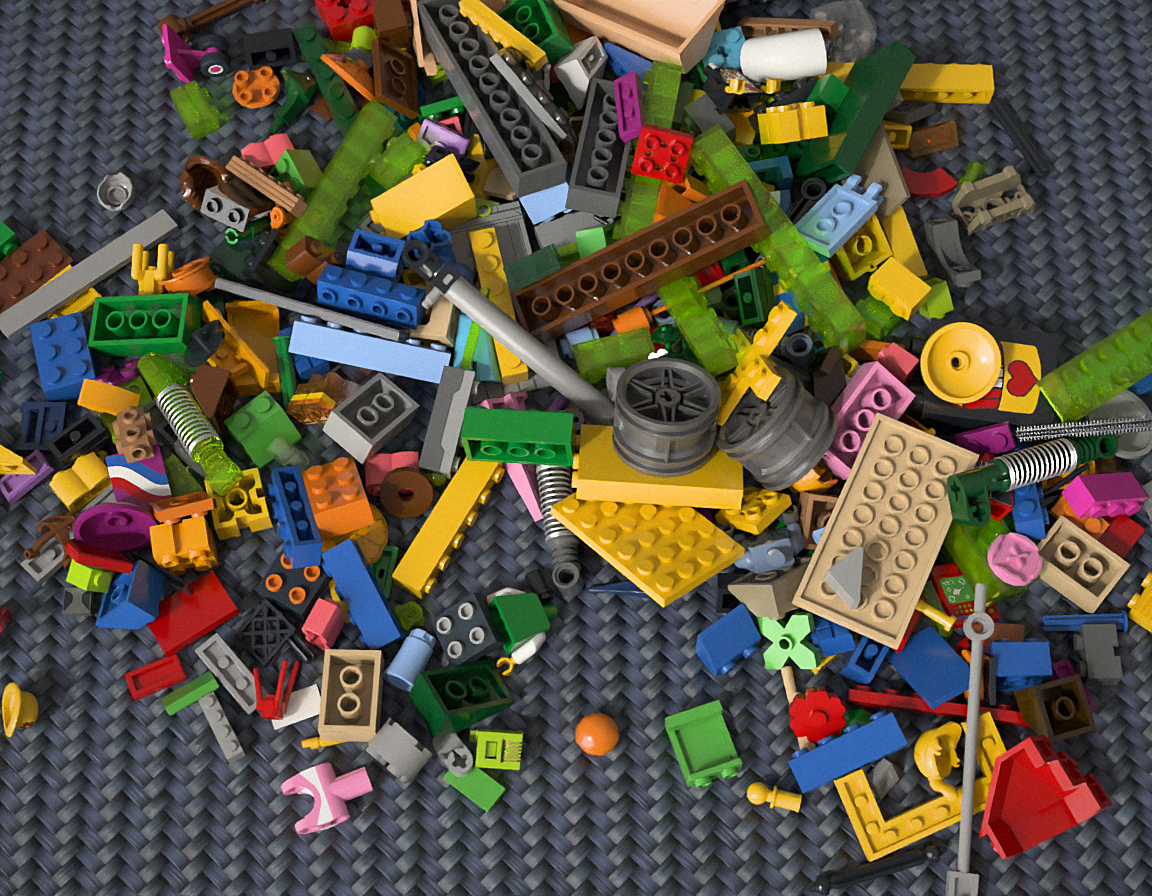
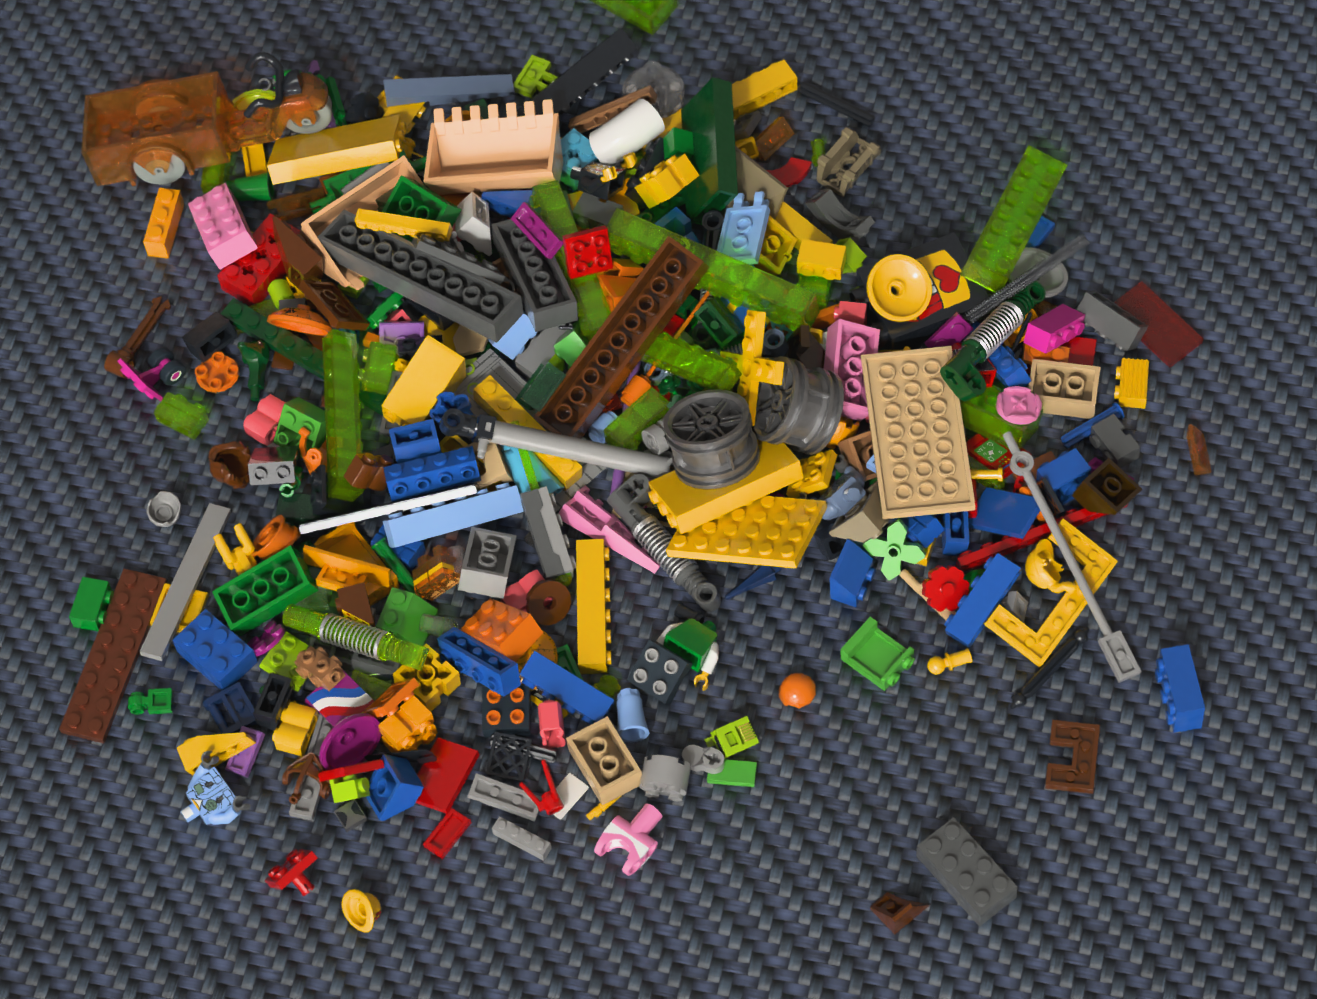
camera: 25 degrees left, 5 degrees down
(106, 397) = (275, 656): light orange slope -> none
(189, 693) = (482, 827): bright green tile -> none
(203, 344) = (327, 578): black piece -> none
(267, 185) = (289, 438): medium nougat piece -> none
(459, 696) = (682, 718): dark green slope -> none
(519, 436) = (611, 512): green brick -> none
(846, 578) = (912, 478): light grey slope -> none
(1037, 797) = (1129, 557): red panel -> none

